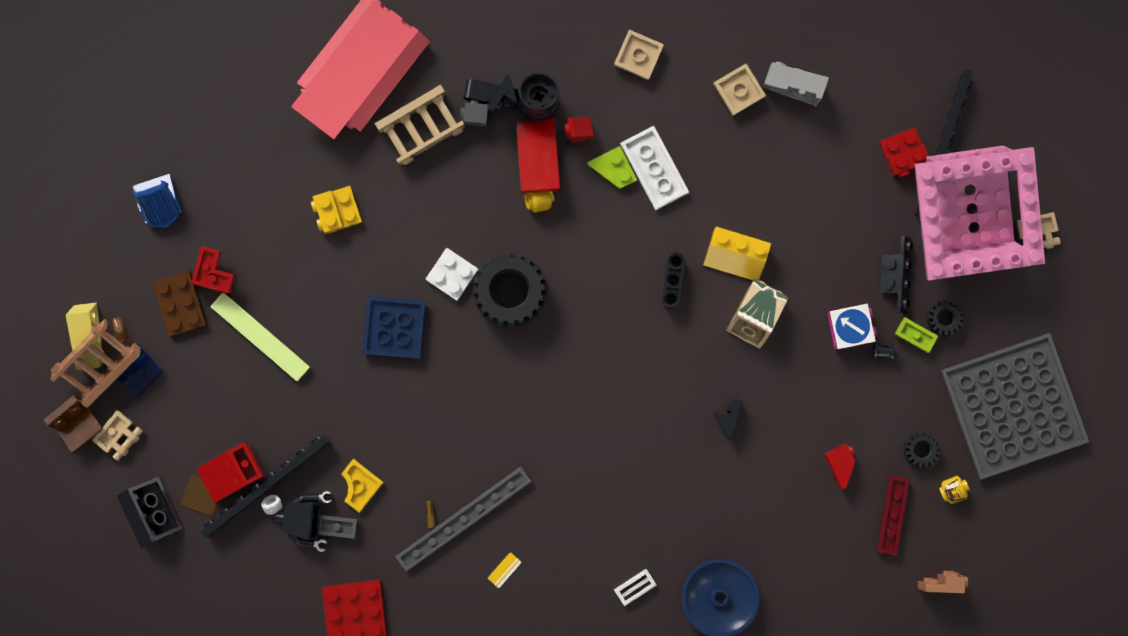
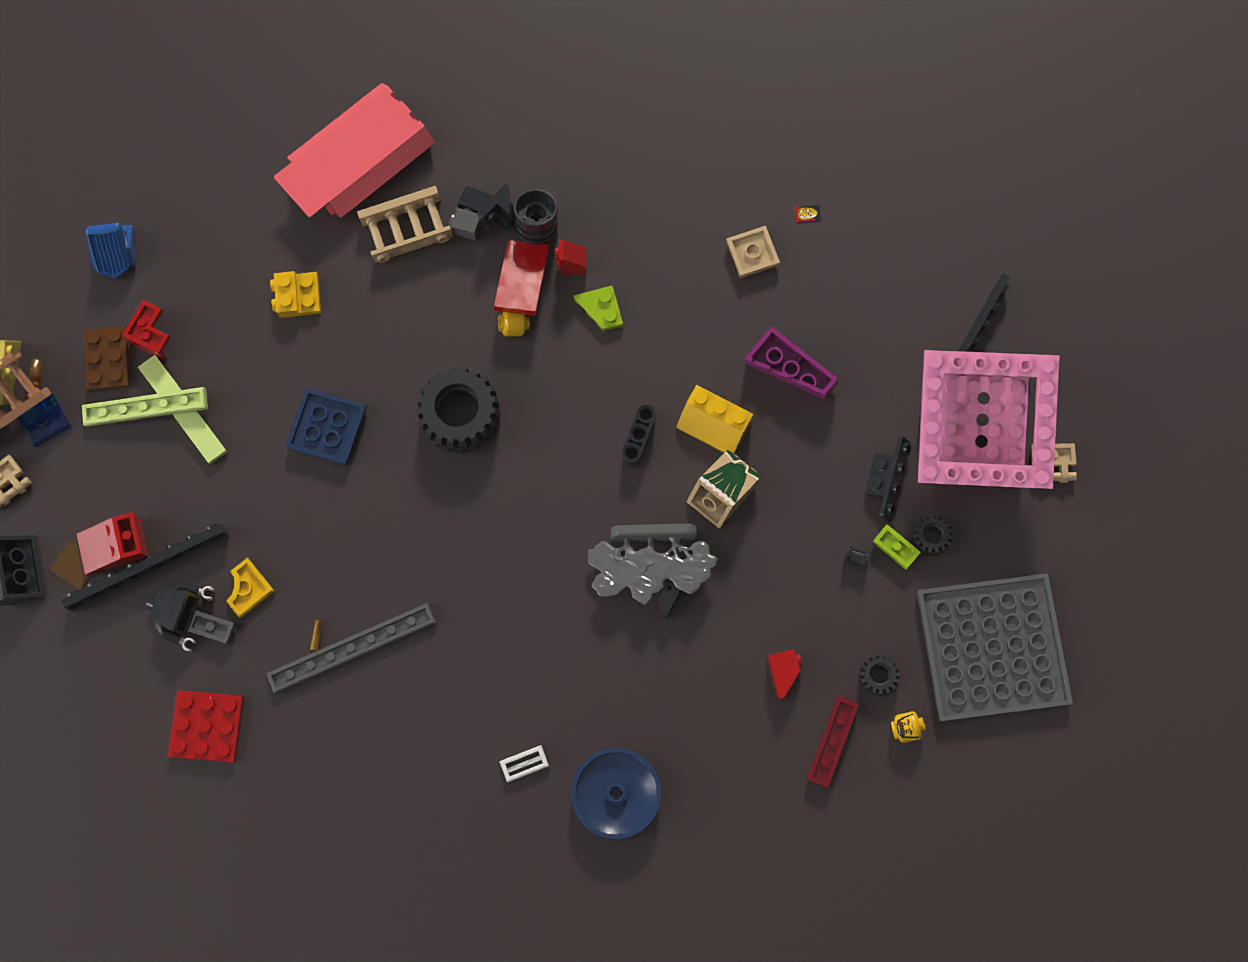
camera: 20 degrees right, 10 degrees down
(227, 342) = (144, 407): none -> yellowish green tile
(271, 504) = (146, 589): white tile -> none
(451, 274) = (401, 383): white plate -> none
(504, 570) = (383, 714): yellow sticker -> none
(638, 54) = (652, 197): tan plate -> none
(654, 168) = (645, 316): white tile -> none
(706, 399) = (646, 569): none -> dark grey plant
(780, 42) = (807, 213): none -> sticker
(790, 188) = (789, 363): none -> magenta wedge
(795, 83) = (814, 255): light grey wedge -> none
(851, 326) = (826, 523): piece -> none
(903, 152) = (911, 348): red plate -> none
(947, 582) = (881, 829): nougat plate -> none

